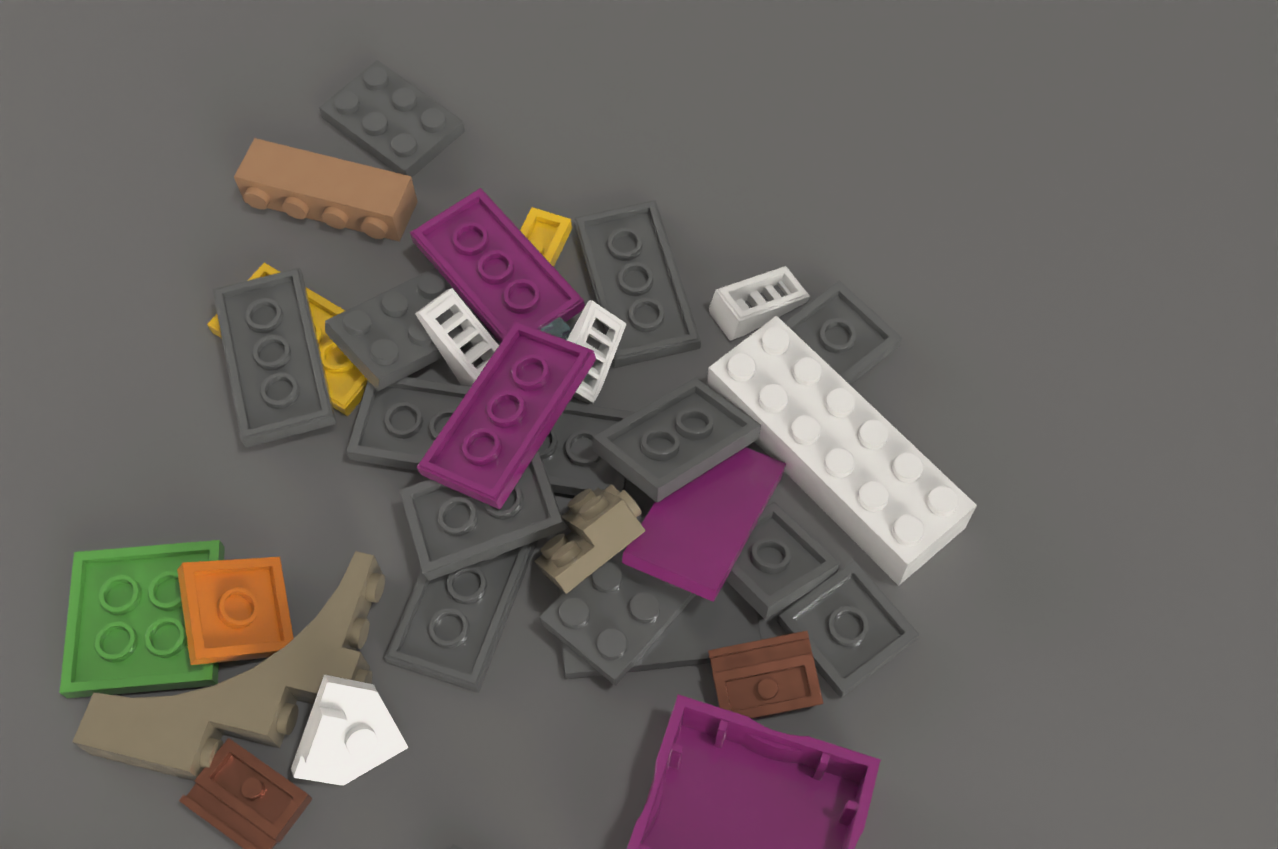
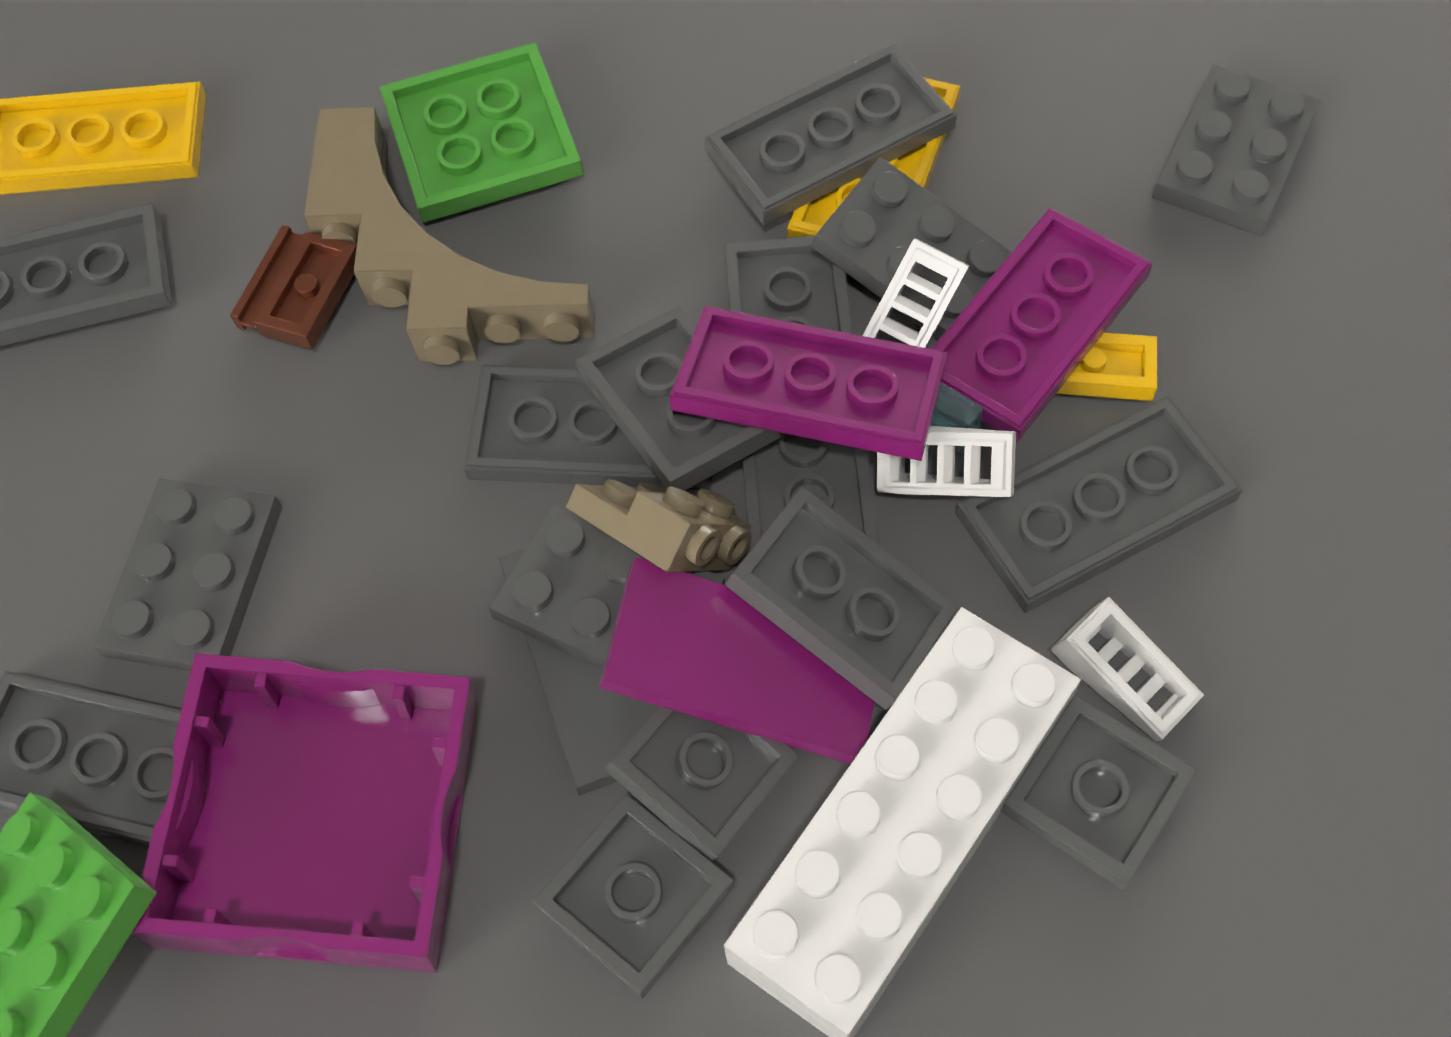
camera: 80 degrees right, 0 degrees up
(234, 609) = (497, 197): orange plate -> none
(326, 189) = (1088, 112): medium nougat brick -> none
(346, 733) = (376, 349): white plate -> none
(766, 675) = (534, 796): copper plate -> none

